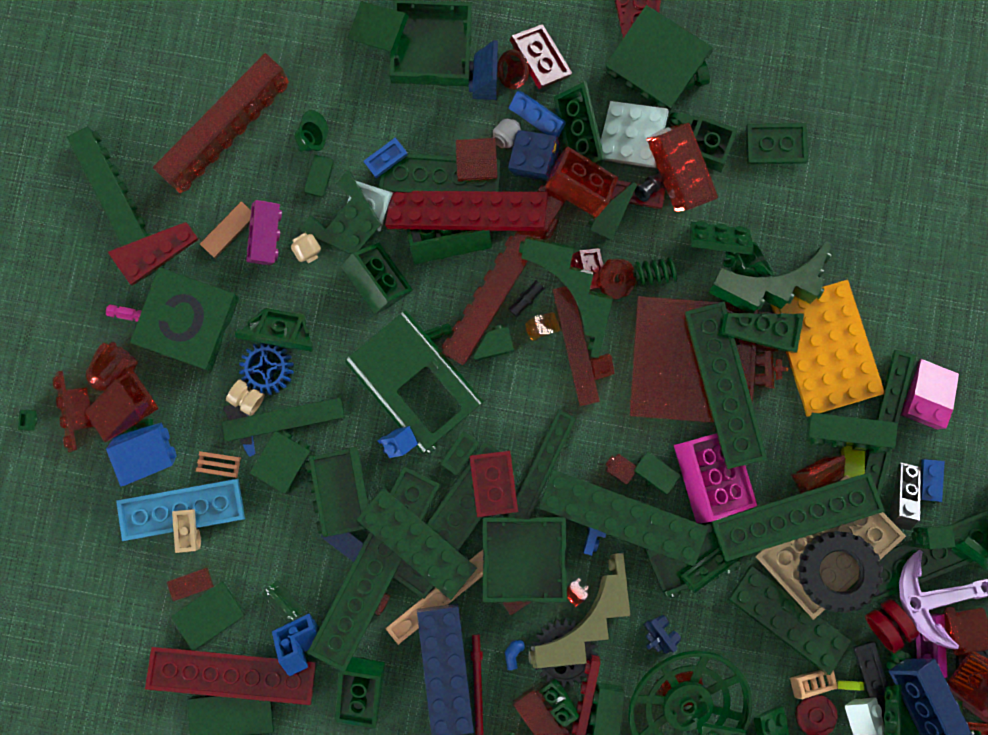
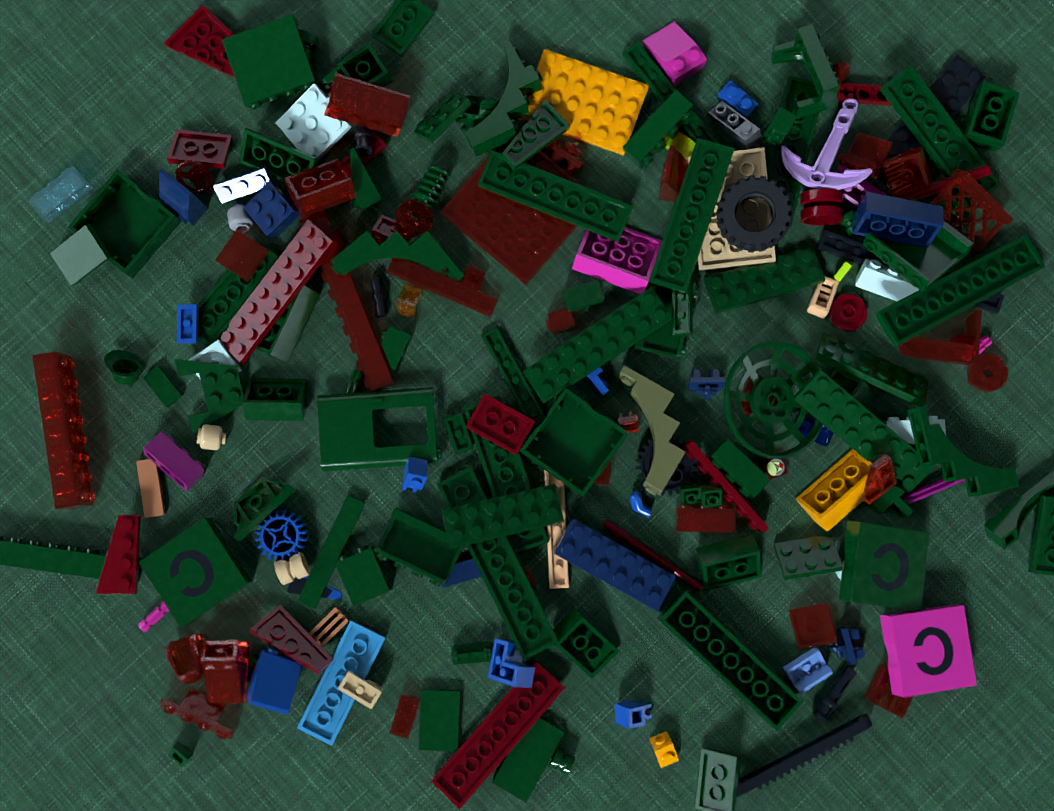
camera: 50 degrees left, 0 degrees up
(186, 440) = (290, 638): none -> wing

